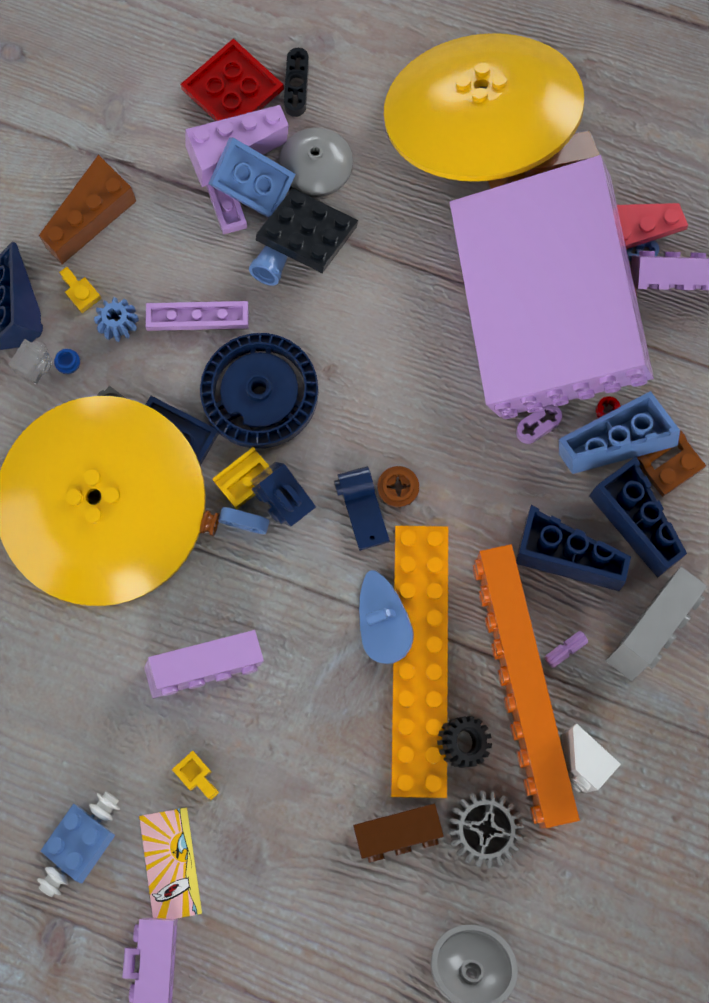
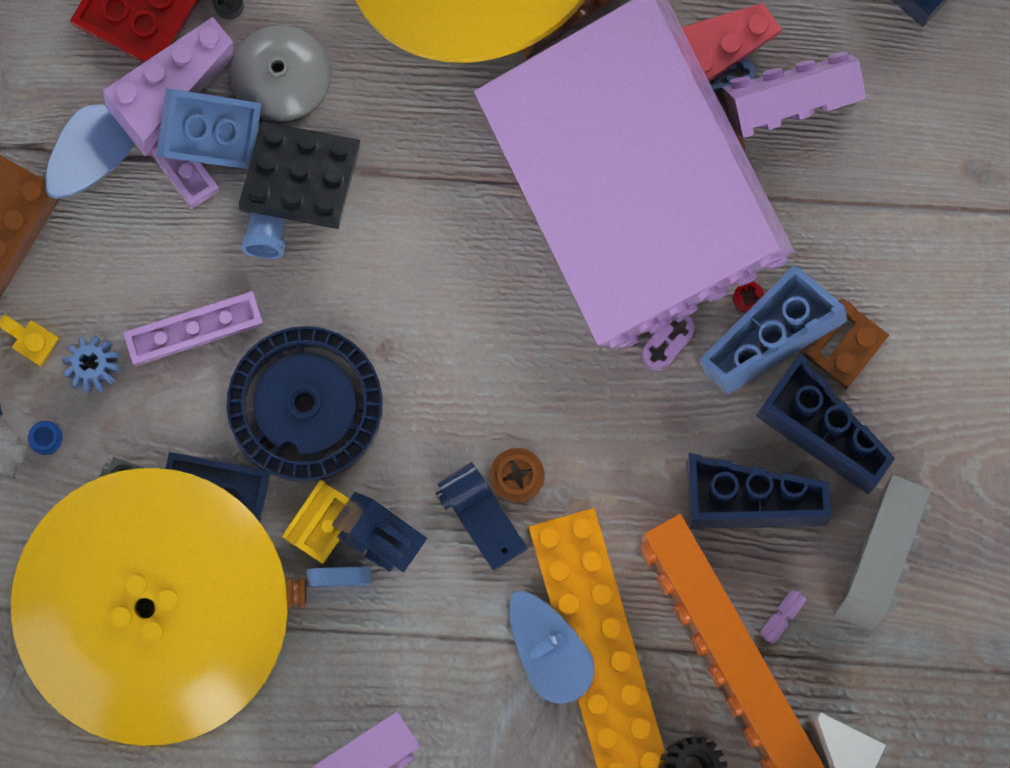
camera: 20 degrees left, 5 degrees up
(161, 173) = (86, 151): none -> medium blue shield

